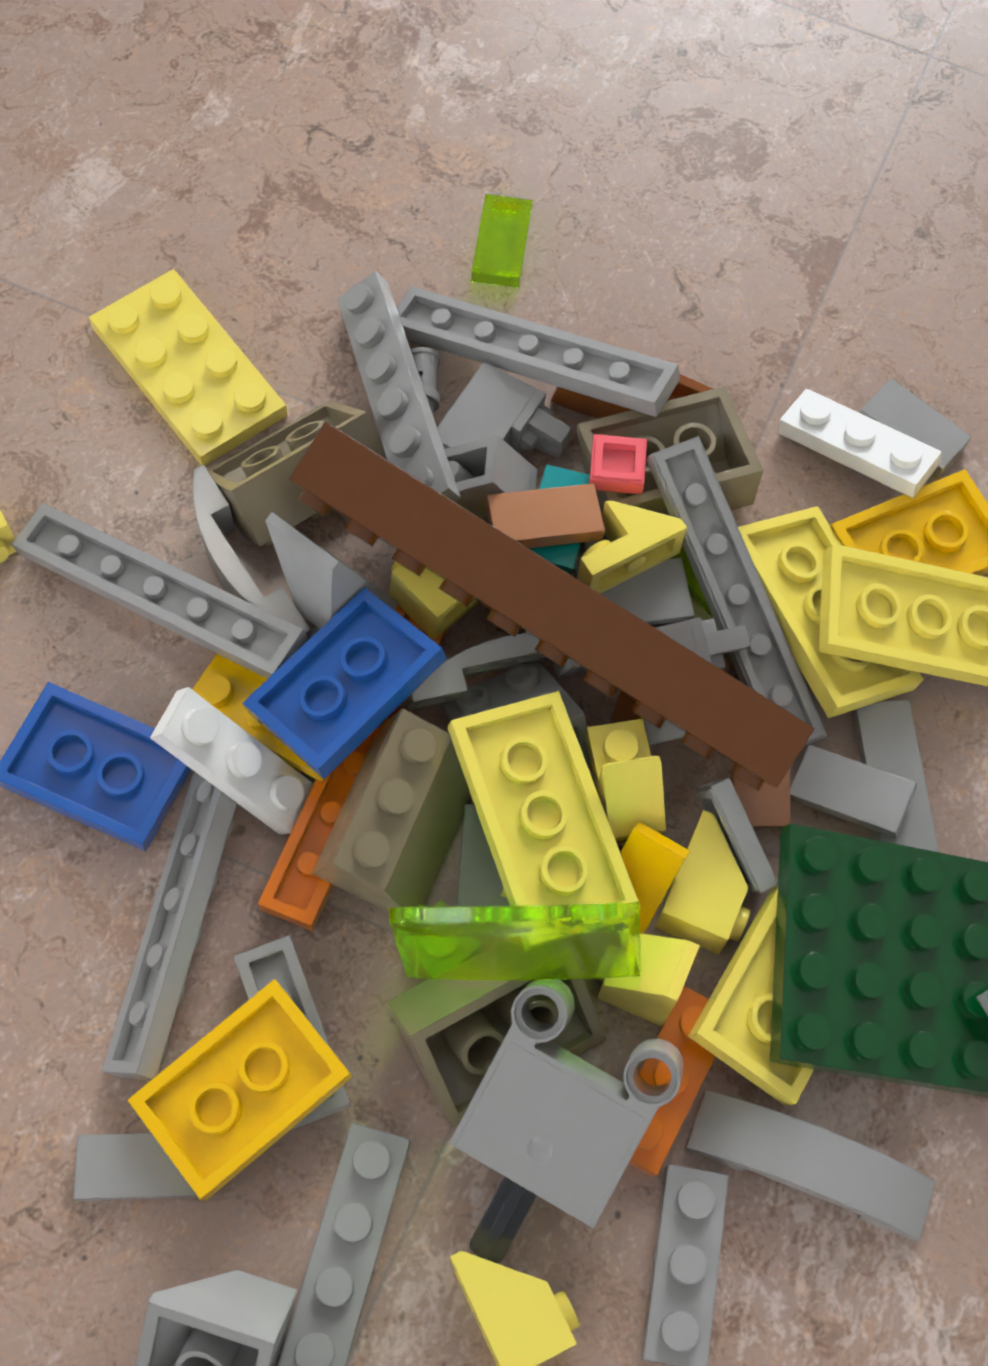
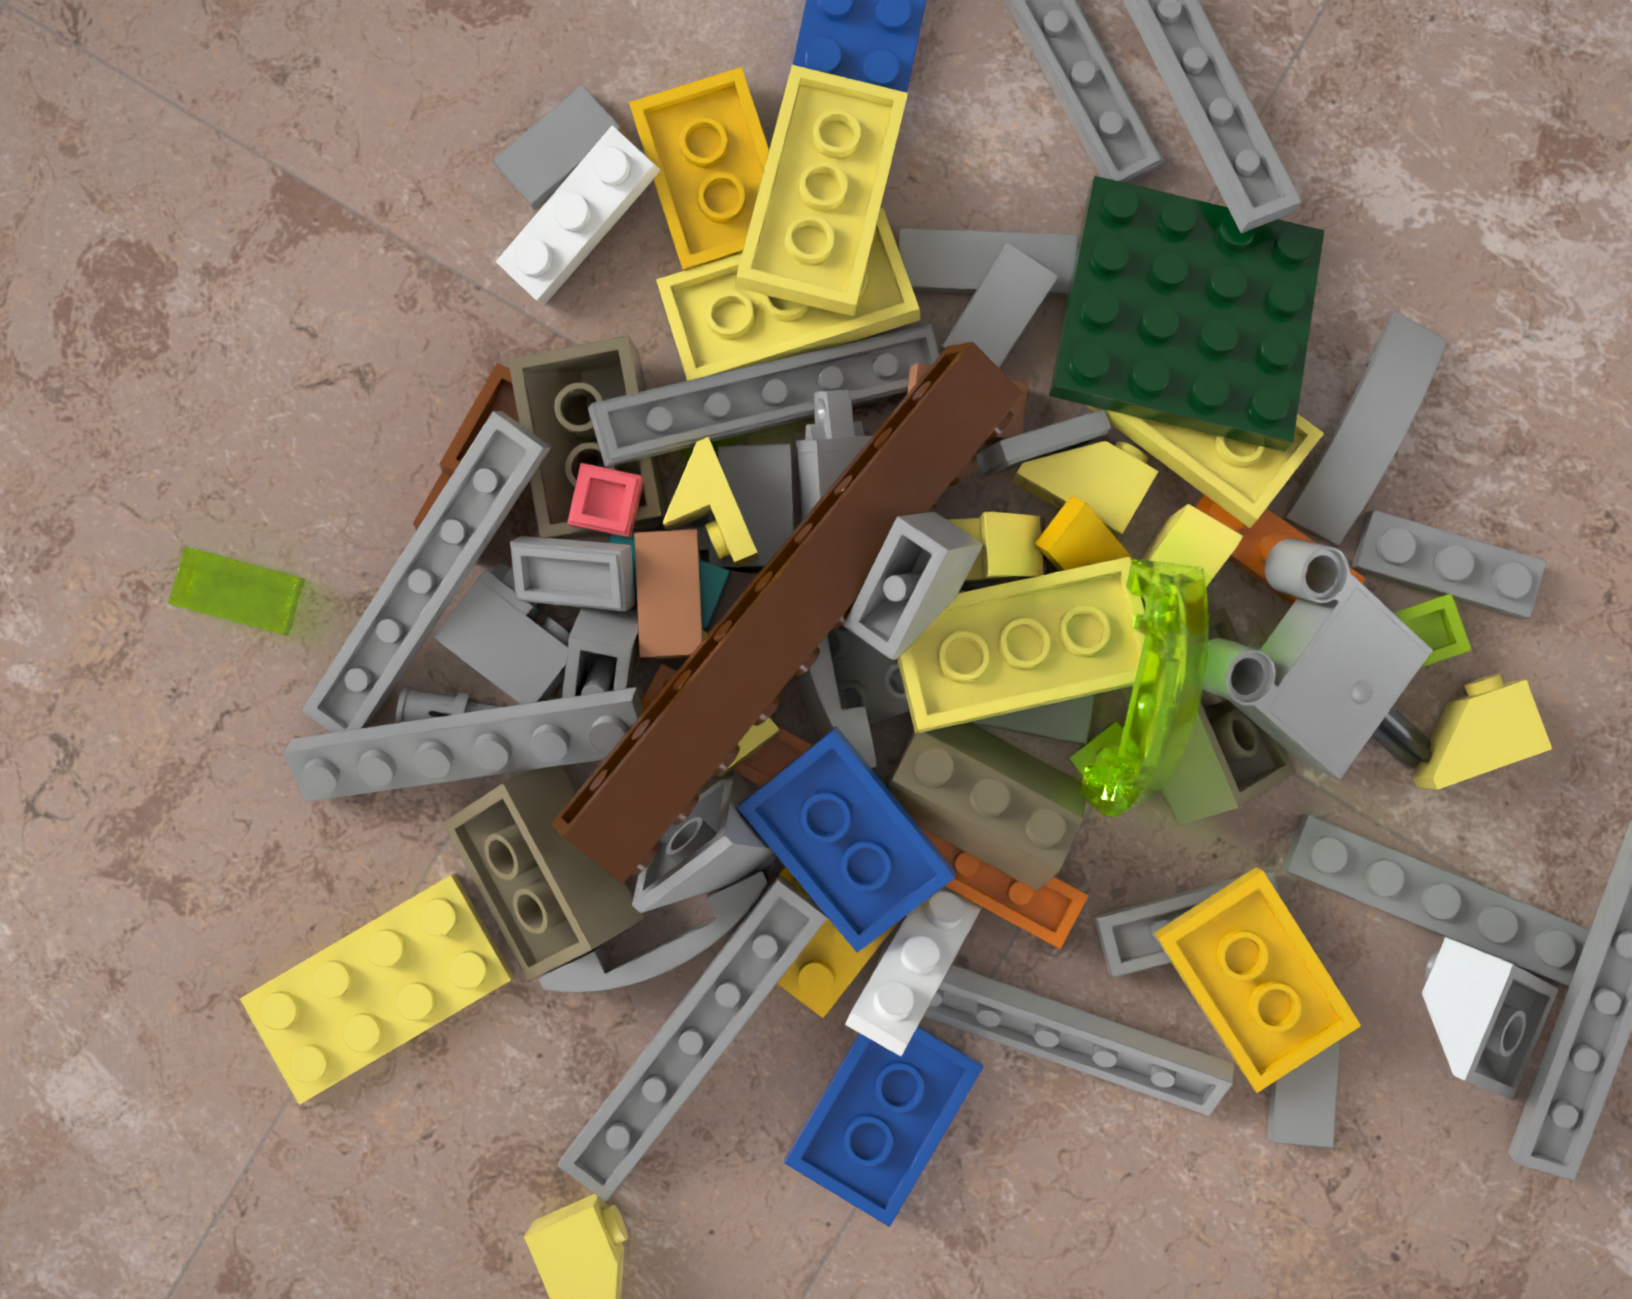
camera: 80 degrees left, 20 degrees up
(552, 446) = (573, 573): none -> light grey tile
(588, 698) = (911, 581): none -> light grey slope
(612, 1248) = (1438, 626): none -> lime plate

